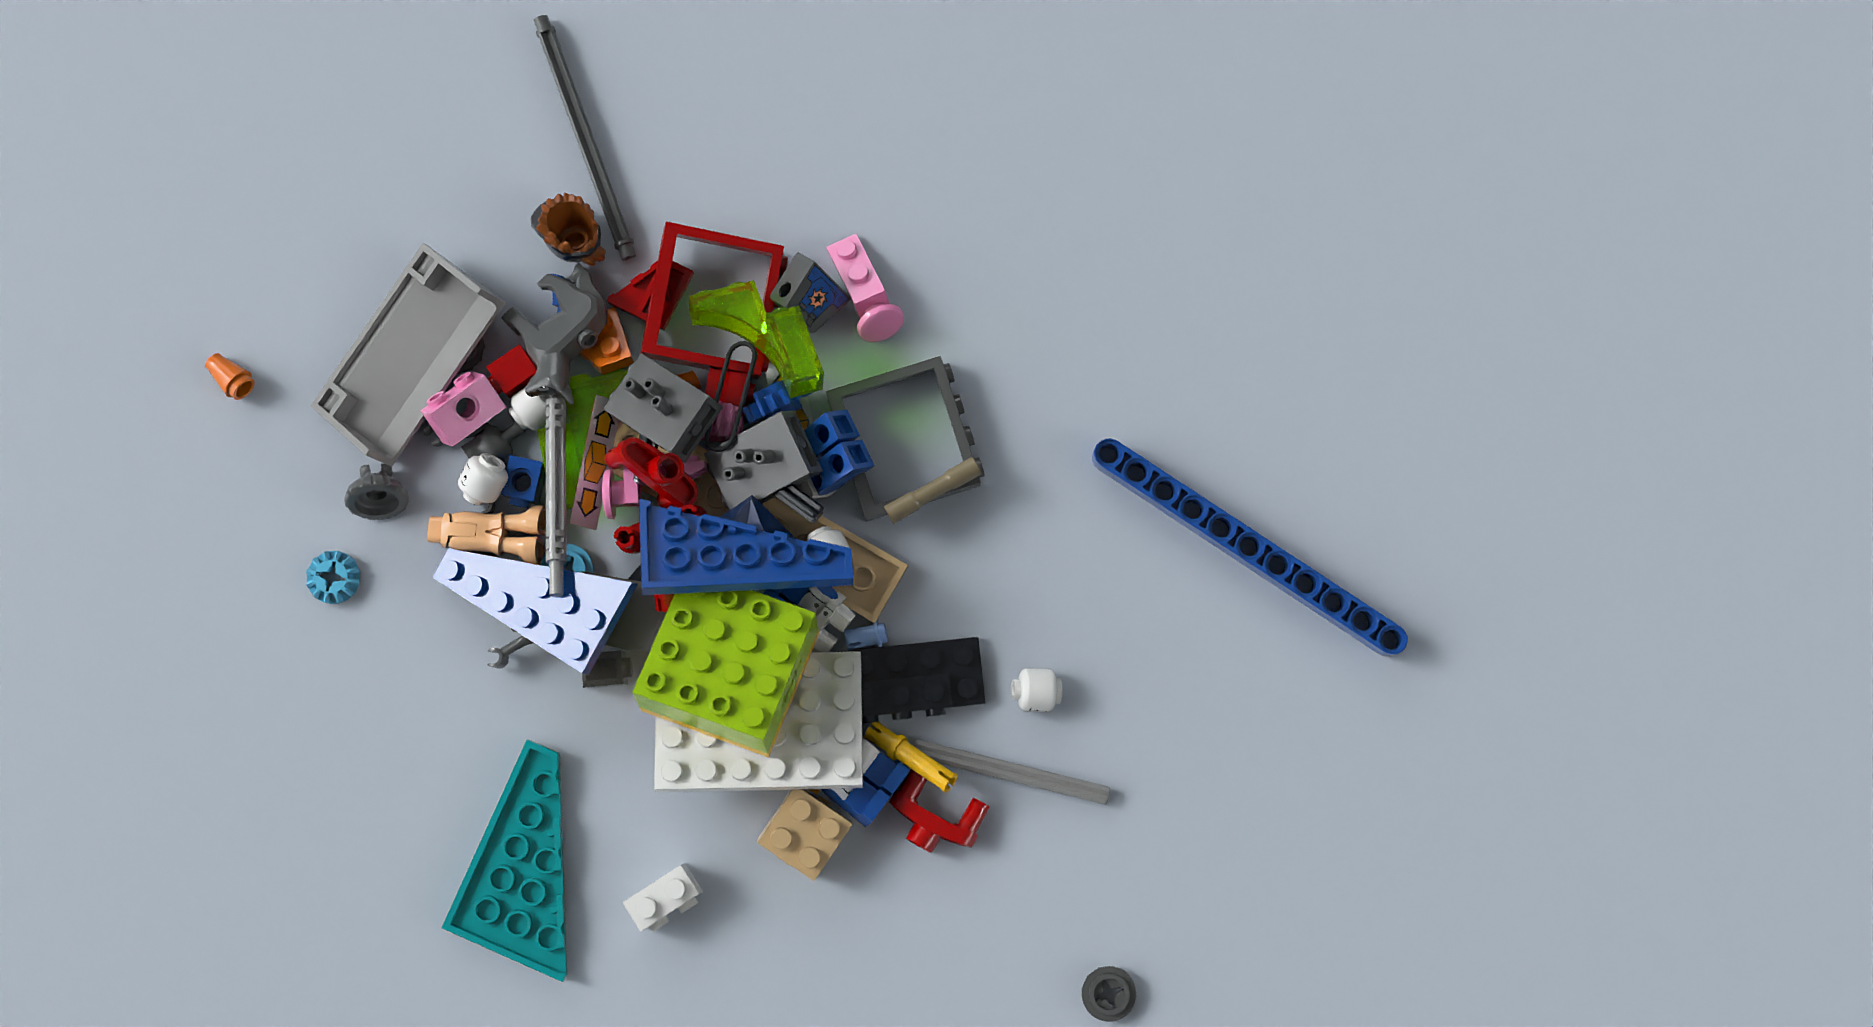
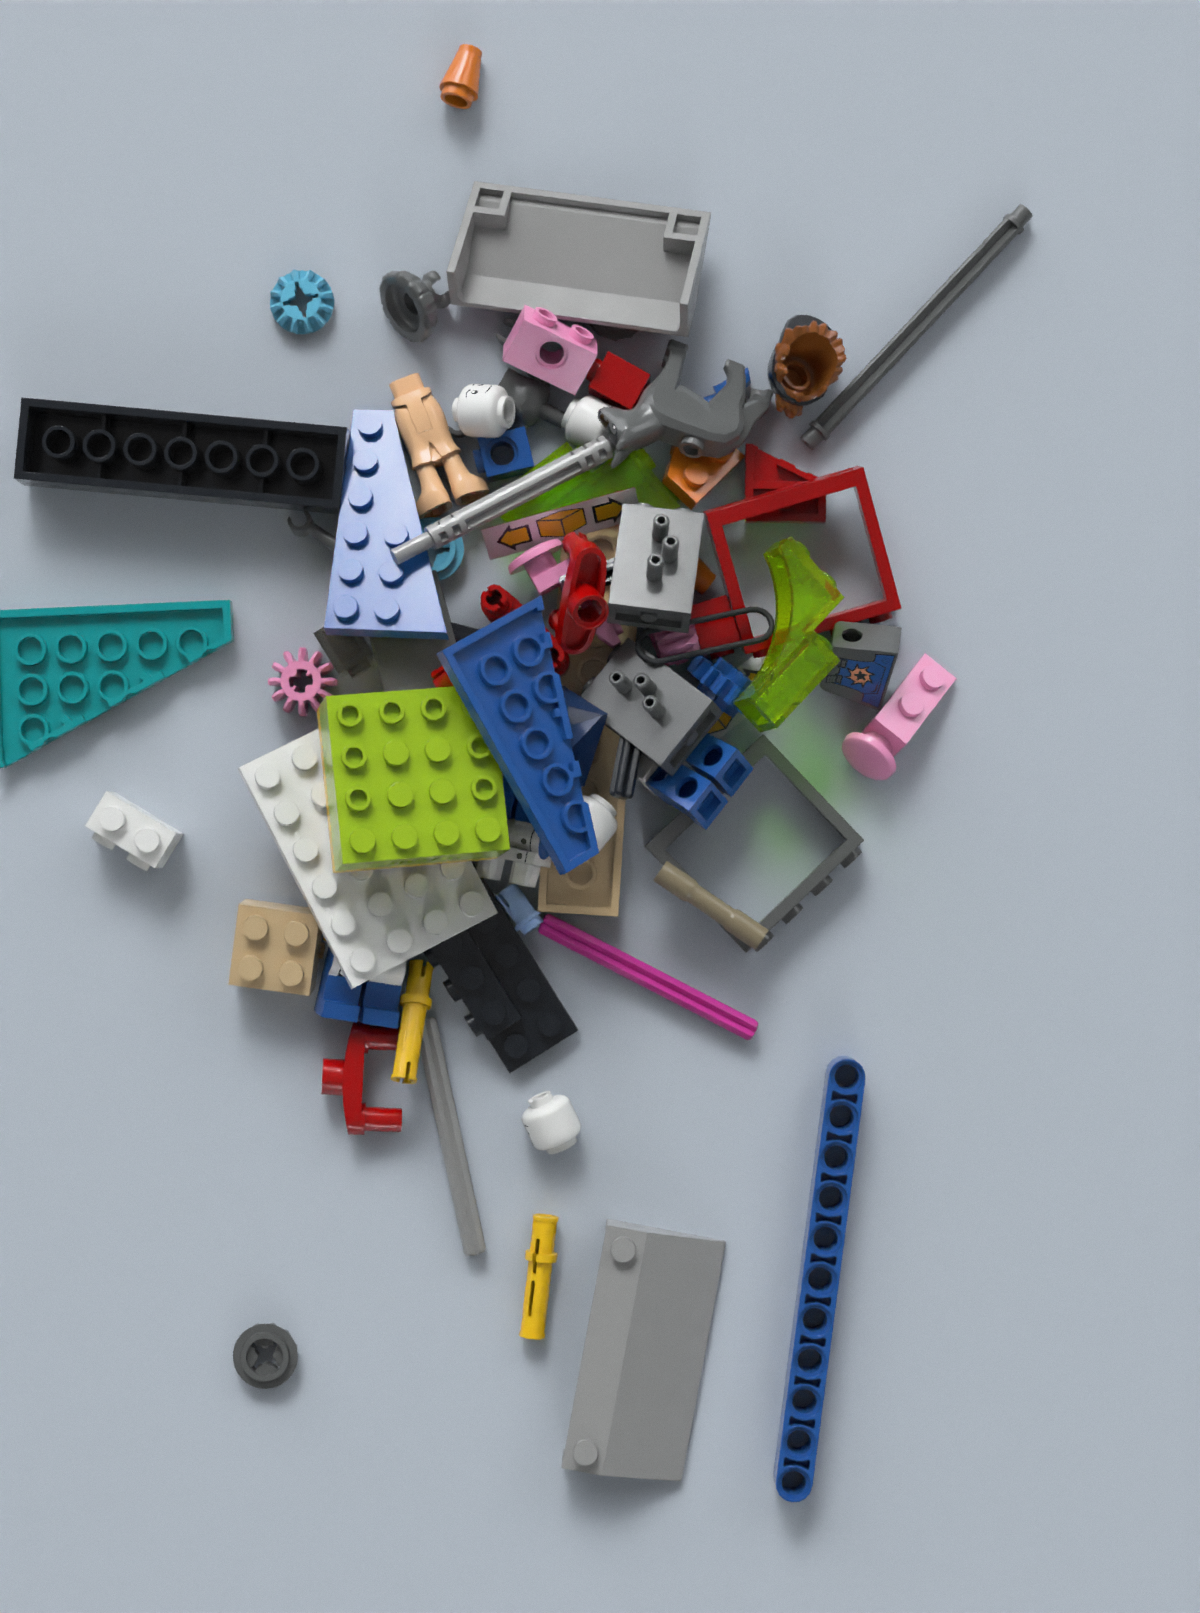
camera: 65 degrees right, 5 degrees up
(400, 722) = (181, 455): none -> black brick
(605, 719) = (293, 671): none -> bright pink gear
(964, 565) = (648, 977): none -> dark pink axle
(1137, 749) = (537, 1288): none -> yellow pin
(1242, 705) = (643, 1353): none -> light grey slope

